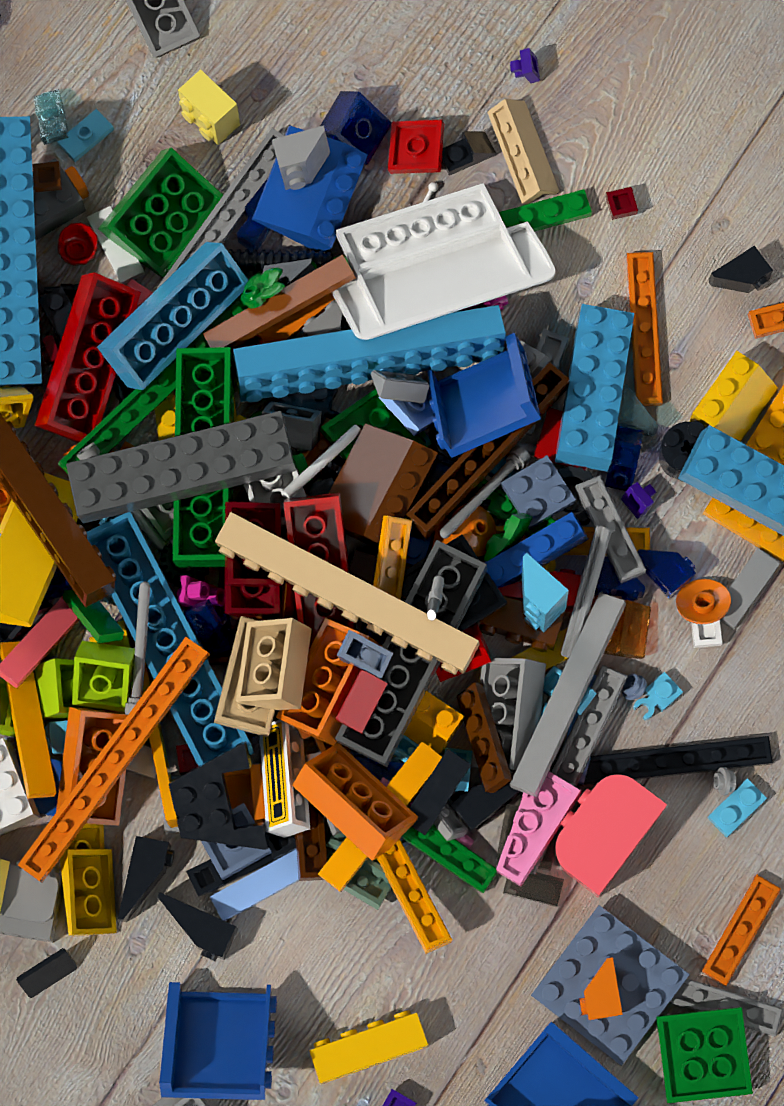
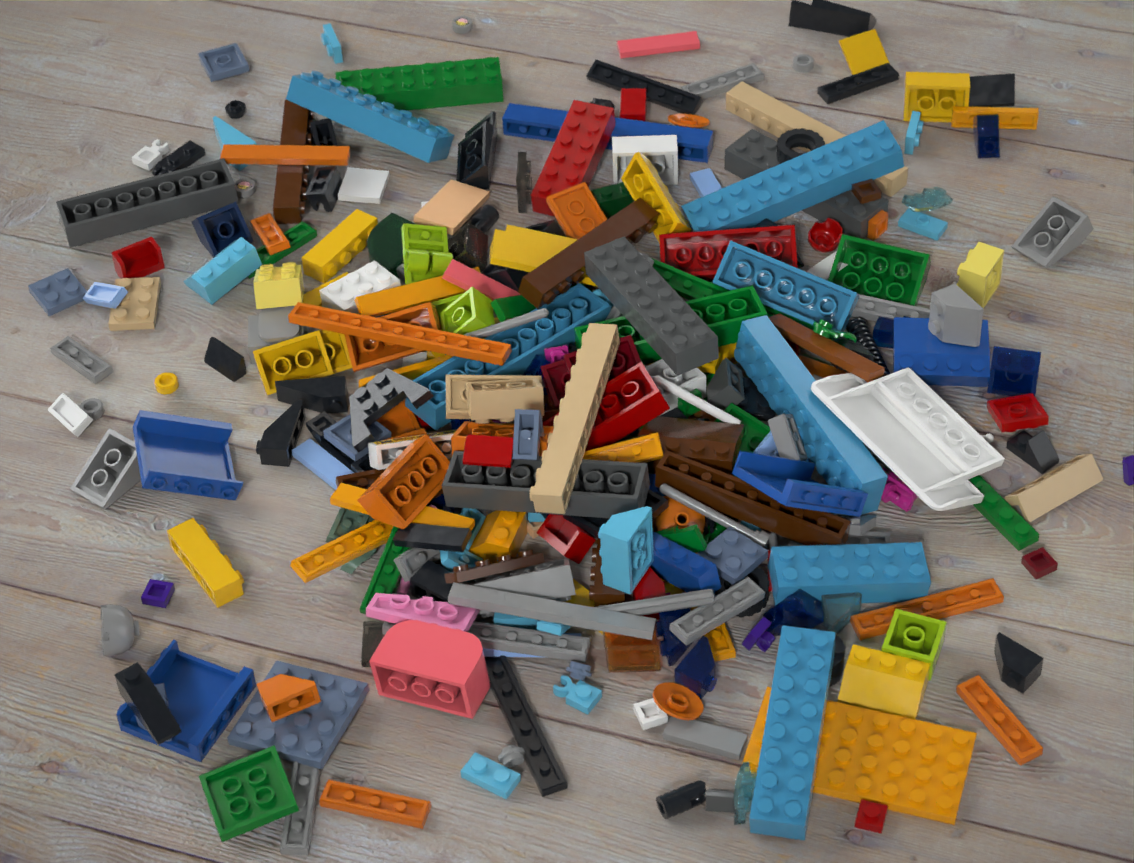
camera: 75 degrees right, 30 degrees down
(57, 1048) = (166, 383): none -> yellow tile
(435, 597) = (591, 465): piece -> none
(698, 356) = (915, 637): none -> lime brick

